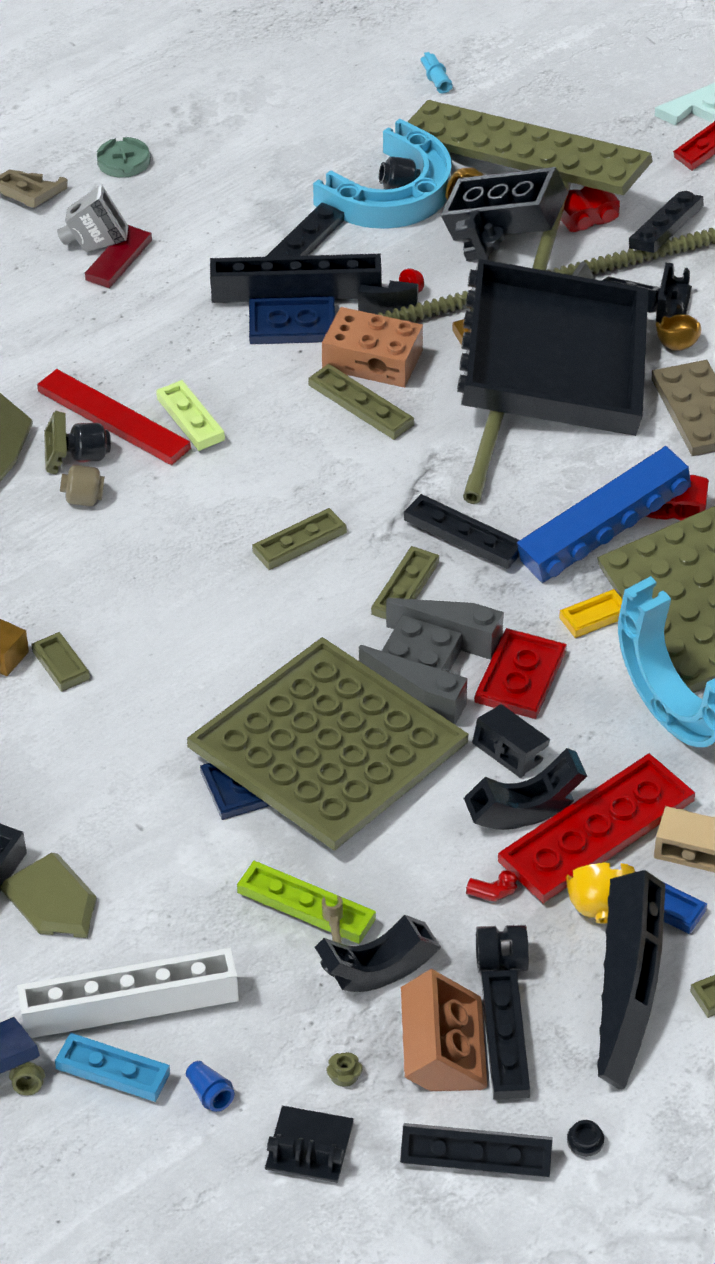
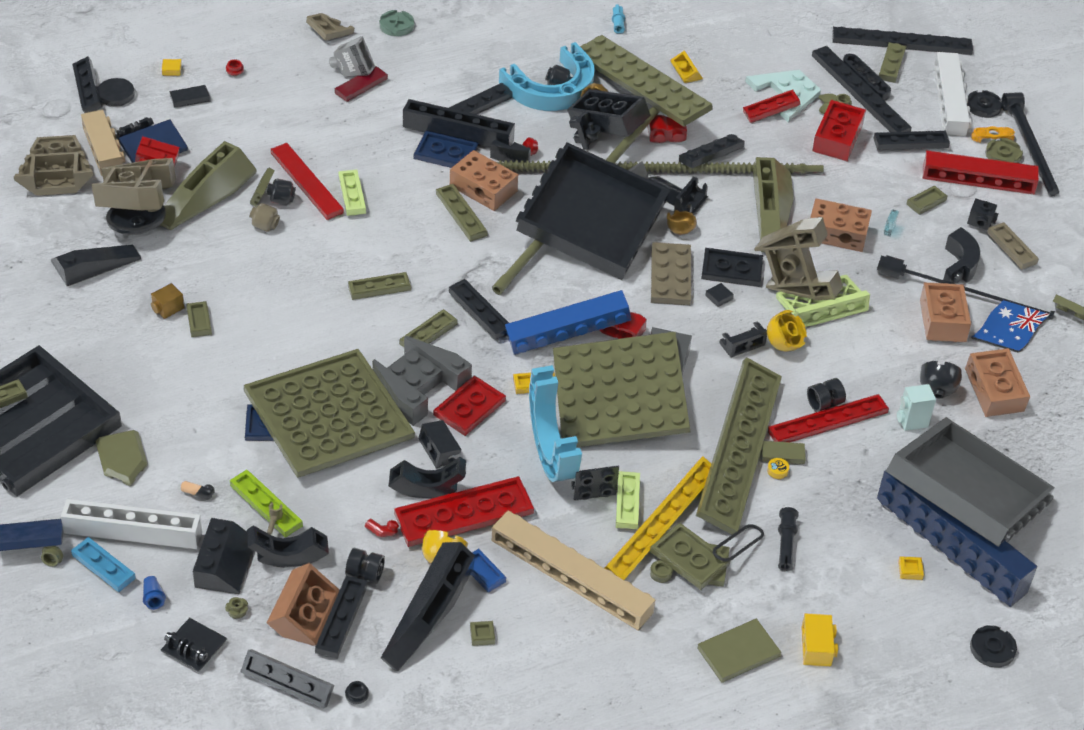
camera: 15 degrees right, 0 degrees up
(198, 913) = (204, 492): none -> arm
(288, 1001) = (222, 557): none -> black slope
(565, 116) = (685, 68): none -> yellow slope

